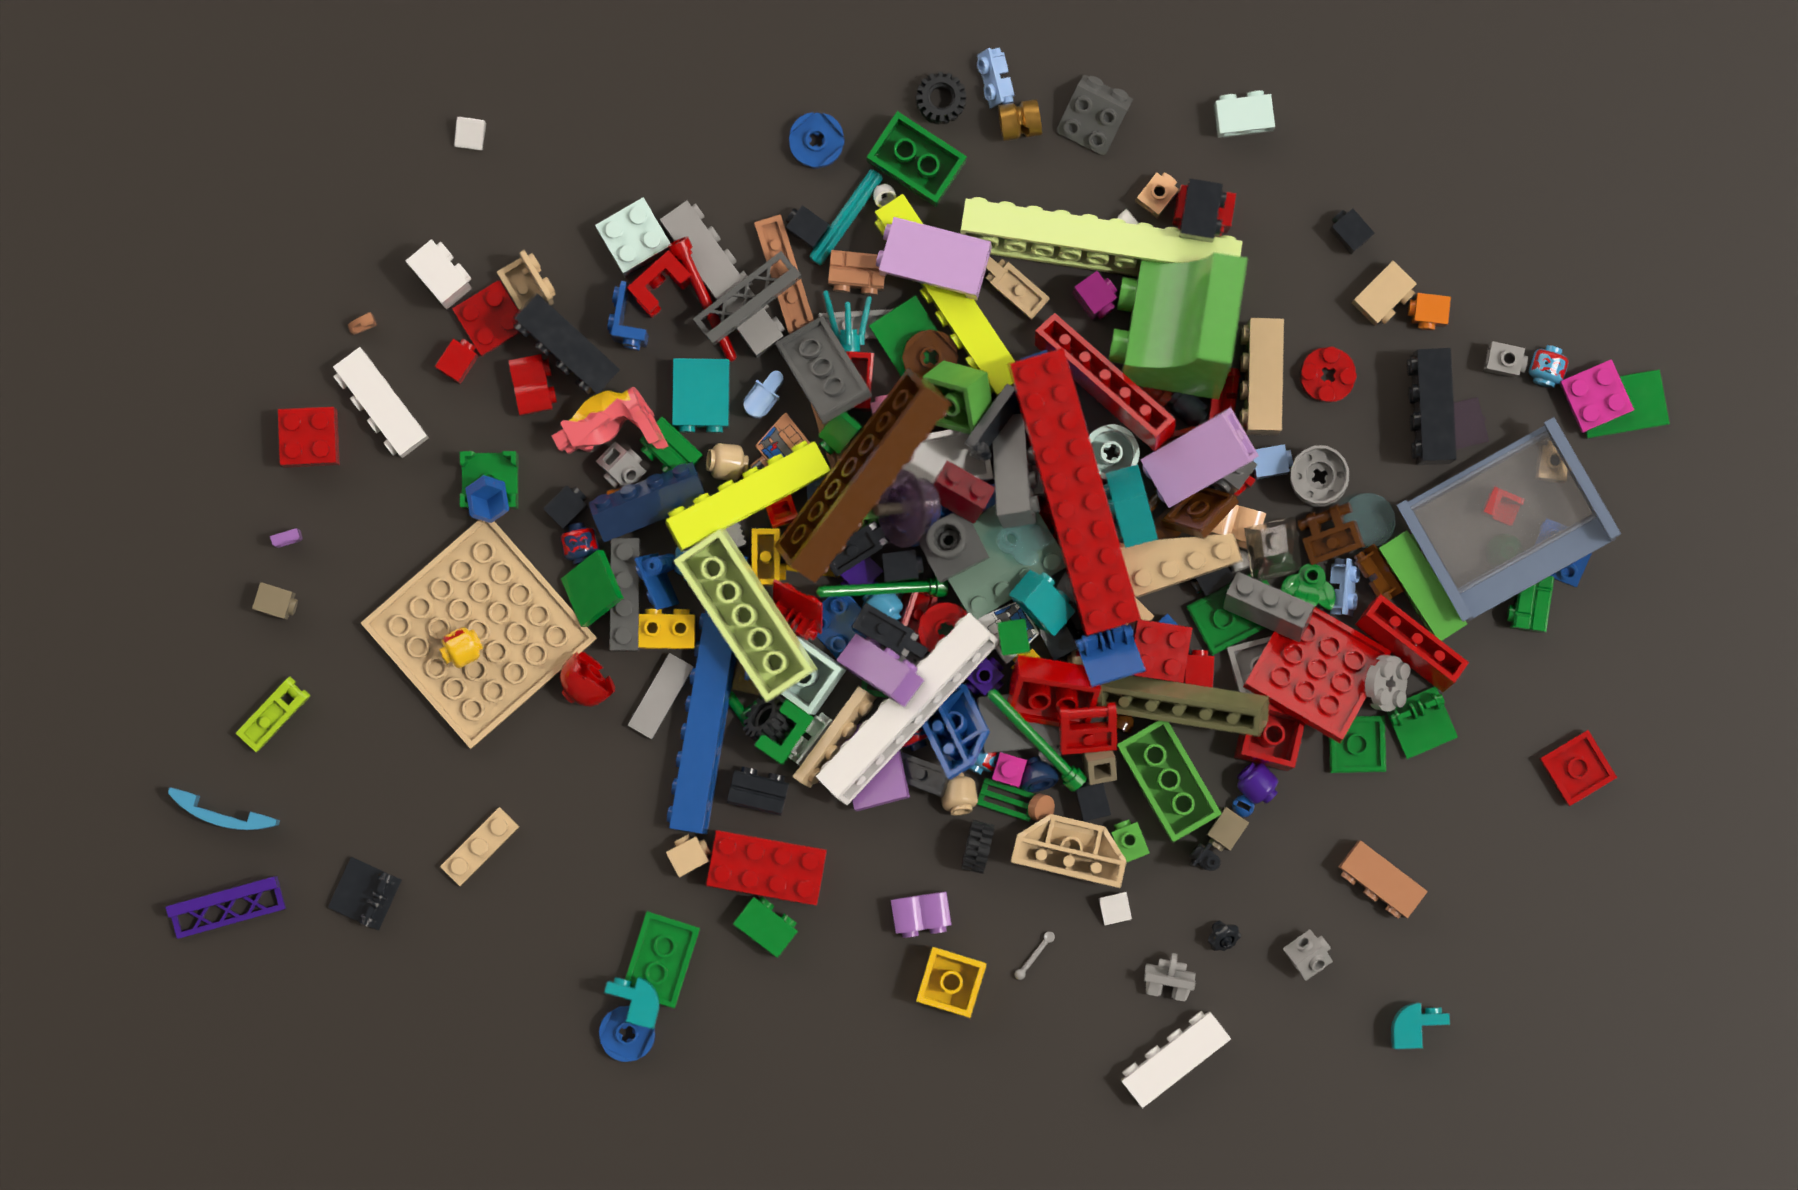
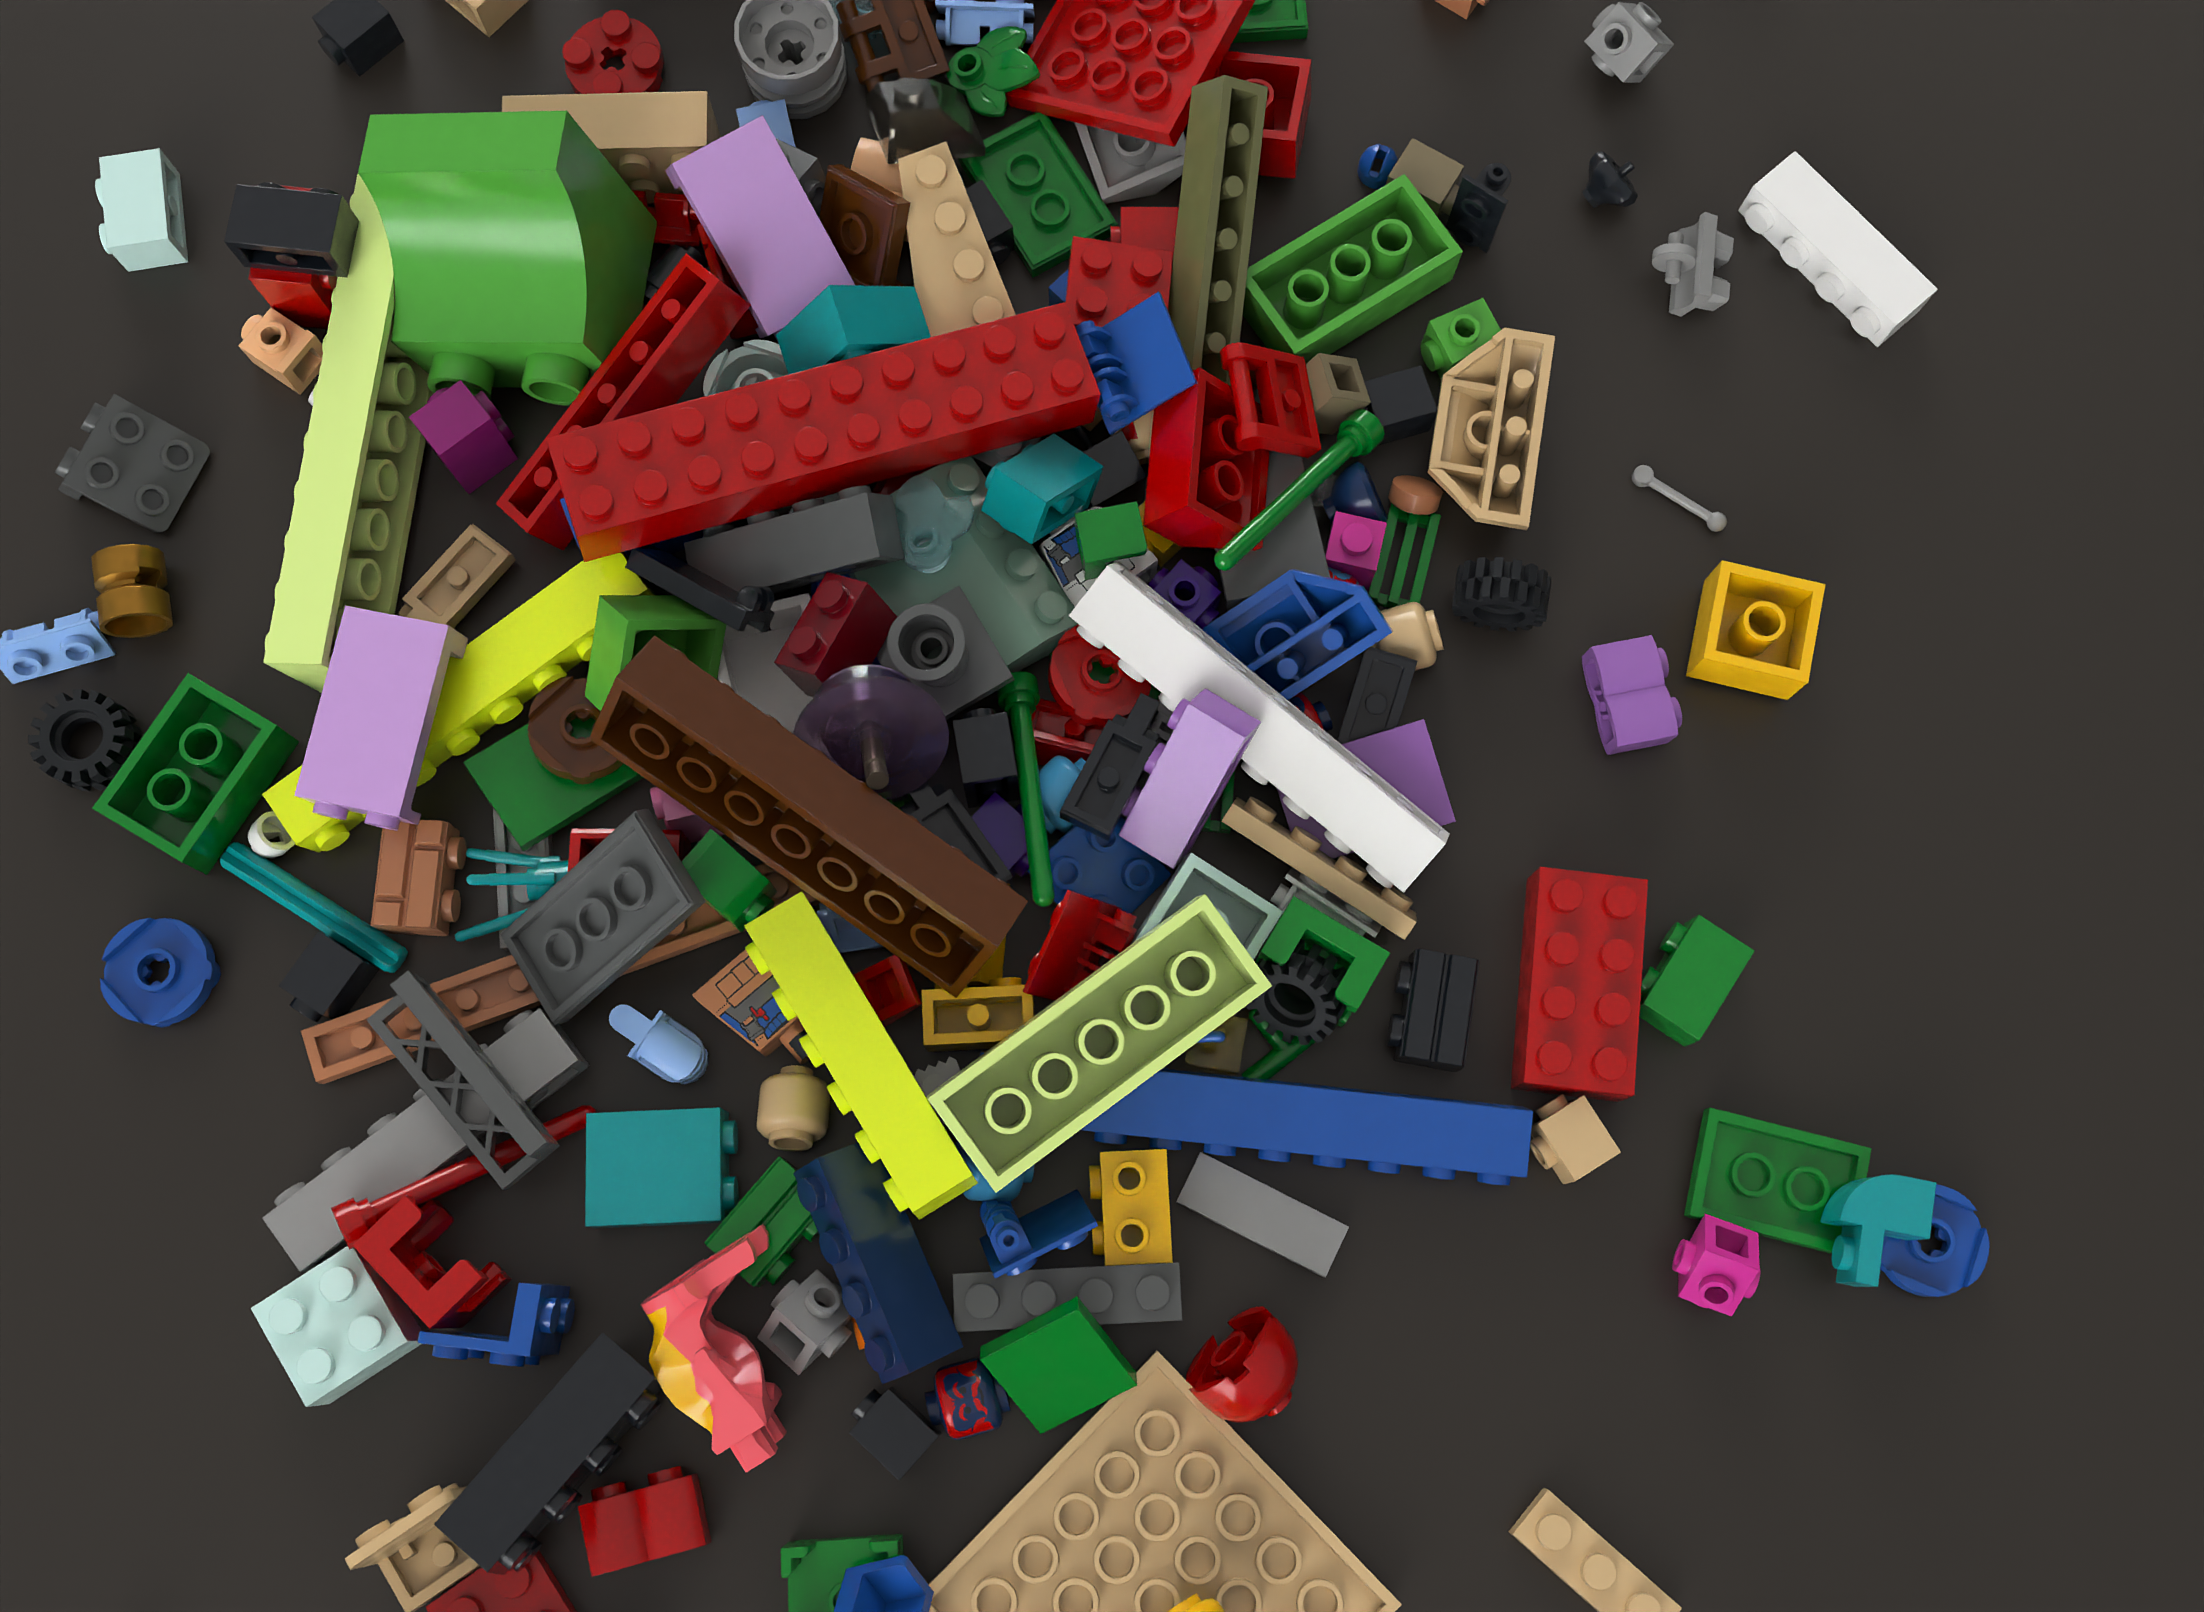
camera: 90 degrees left, 10 degrees down
(620, 921) = (1718, 1265): none -> dark pink brick
(1115, 908) = (1579, 366): white slope -> none
(1257, 783) = (1338, 136): dark purple head -> none
(1268, 606) = (1028, 113): dark grey brick -> none

